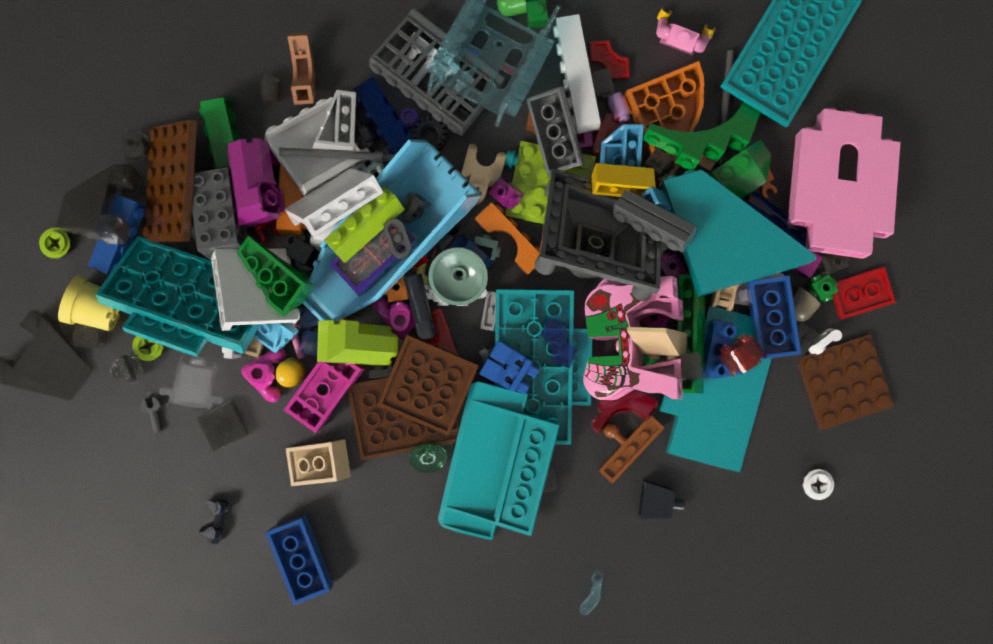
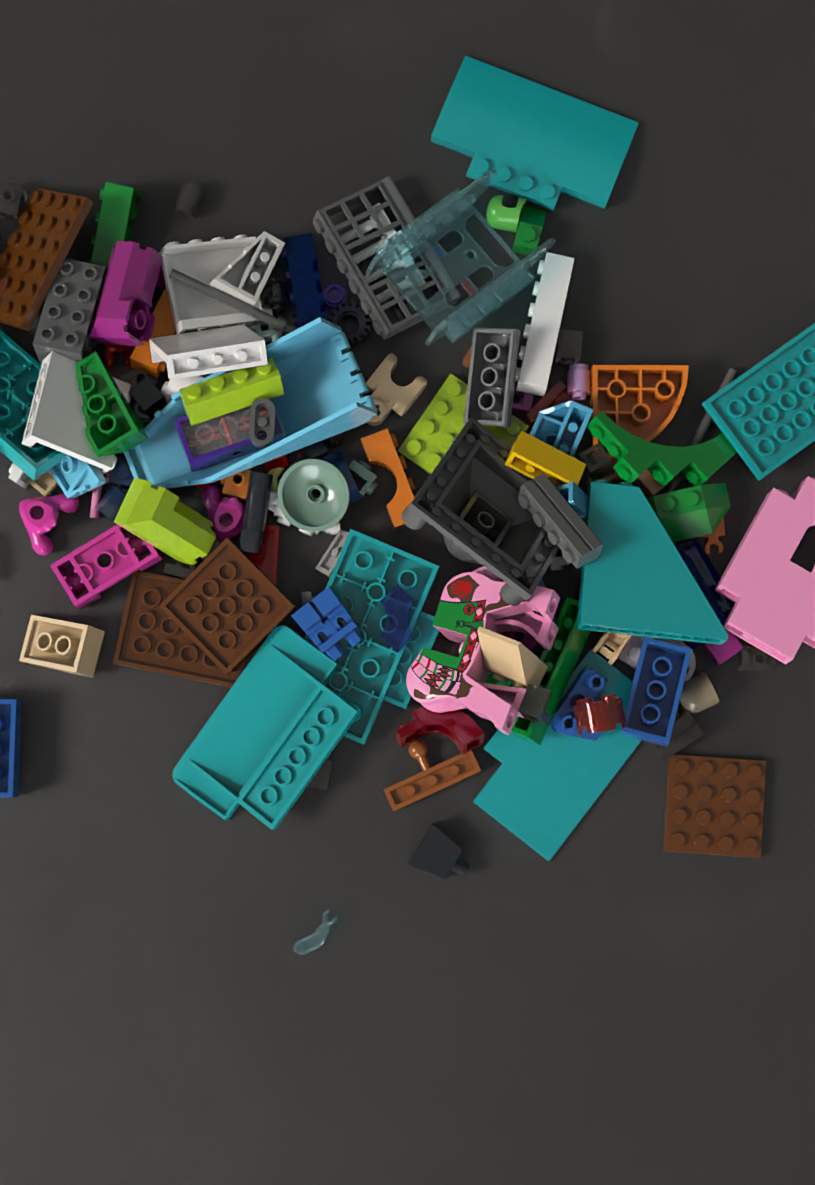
camera: 20 degrees right, 5 degrees down
(290, 372) = (74, 528): yellow helmet -> none
(304, 76) = (237, 193): nougat arch -> none
(413, 207) = (295, 396): clear smoke brick -> none
(427, 457) = (189, 699): clear green dish -> none
(506, 193) = (408, 425): magenta brick -> none
(511, 158) = (430, 389): teal plate -> none
(603, 54) = (585, 314): red tile -> none
(666, 271) = (565, 576): magenta brick -> none
(680, 37) = (680, 332): bright pink torso -> none
(816, 286) = (721, 685): green brick -> none
(824, 339) = (700, 748): white plate -> none
(824, 489) = (641, 923): white gear -> none
(863, 293) = (776, 709): red tile -> none

